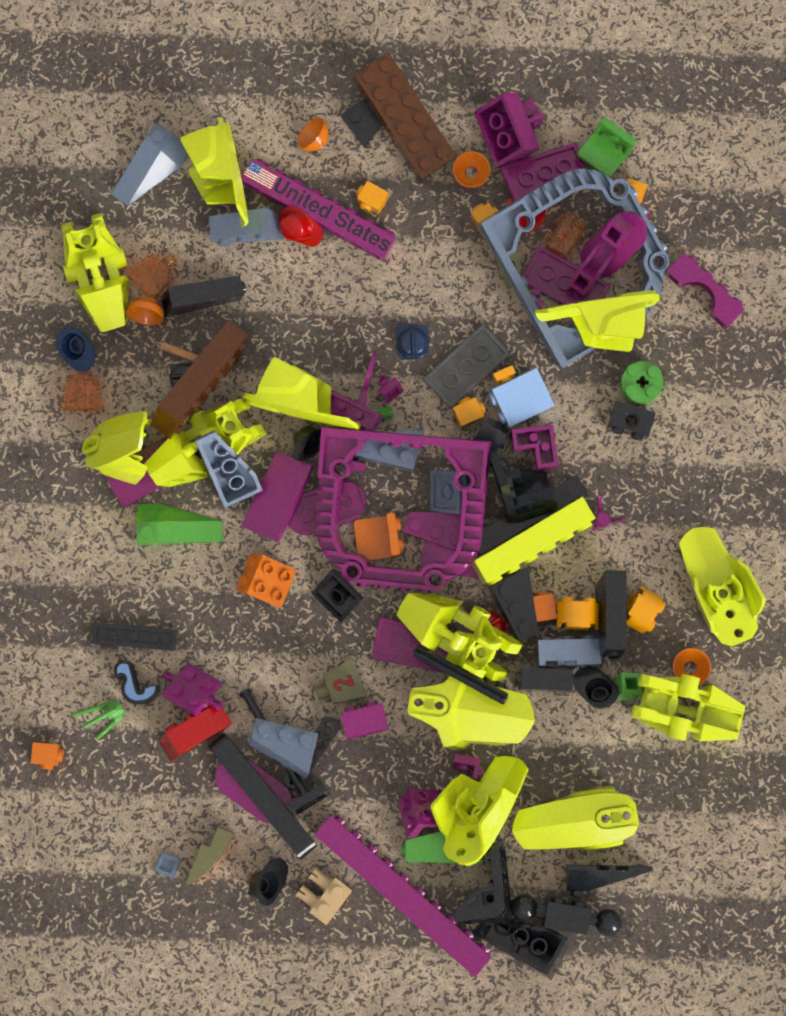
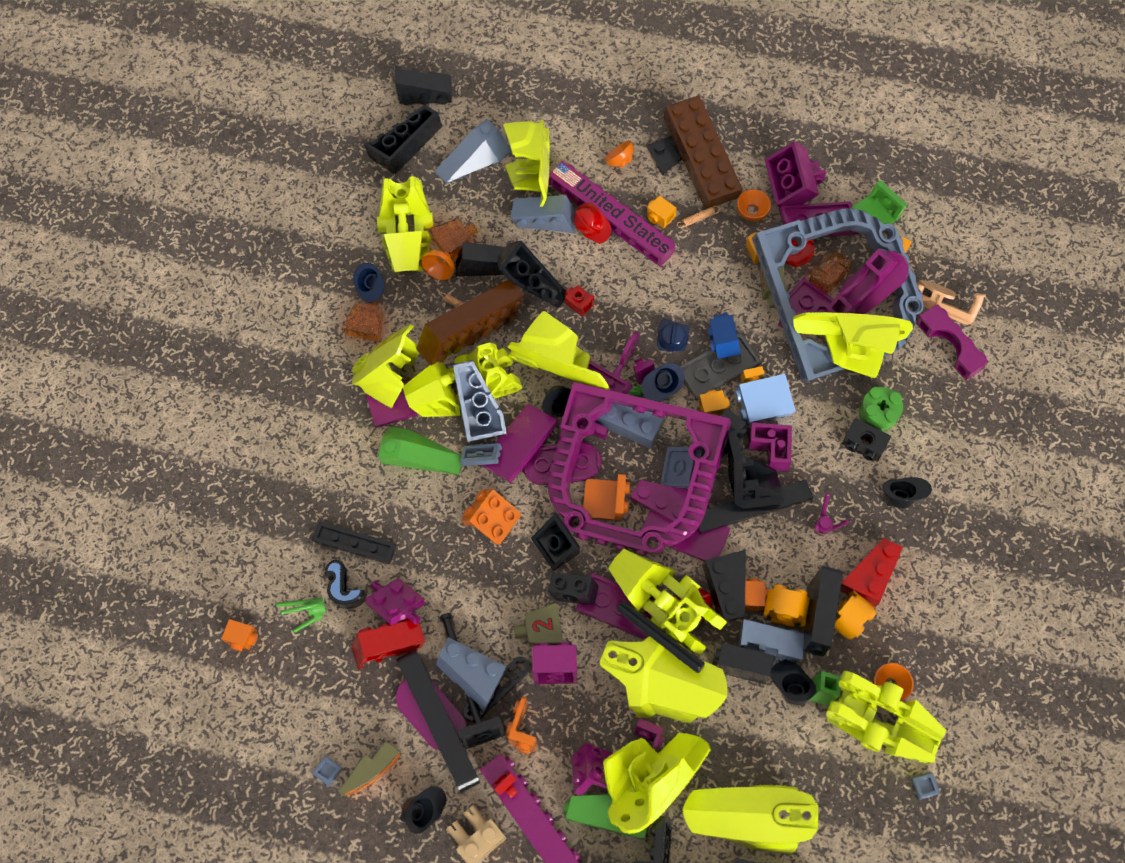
camera: 15 degrees right, 15 degrees down
(69, 164) = (405, 139): none -> black wedge
(74, 93) = (422, 88): none -> black wedge
(241, 525) = (479, 457): none -> sand blue tile
(245, 308) = (528, 273): none -> black wedge
(307, 328) = (582, 304): none -> red brick
(341, 844) = (504, 783): none -> red tile
(349, 801) = (523, 742): none -> orange bracket
(366, 639) = (573, 588): none -> black brick
(412, 401) = (663, 382): none -> dark blue piece
(413, 193) = (698, 216): none -> light nougat piece
(466, 333) = (724, 336): none -> blue brick
(531, 541) = (754, 527): neon yellow brick -> none
(657, 561) = (873, 572): none -> red wedge
(679, 467) = (904, 491): none -> black piece
(688, 239) = (940, 292): none -> light nougat piece
(721, 586) = (936, 611): neon yellow piece -> none
(735, 757) = (925, 786): none -> sand blue tile

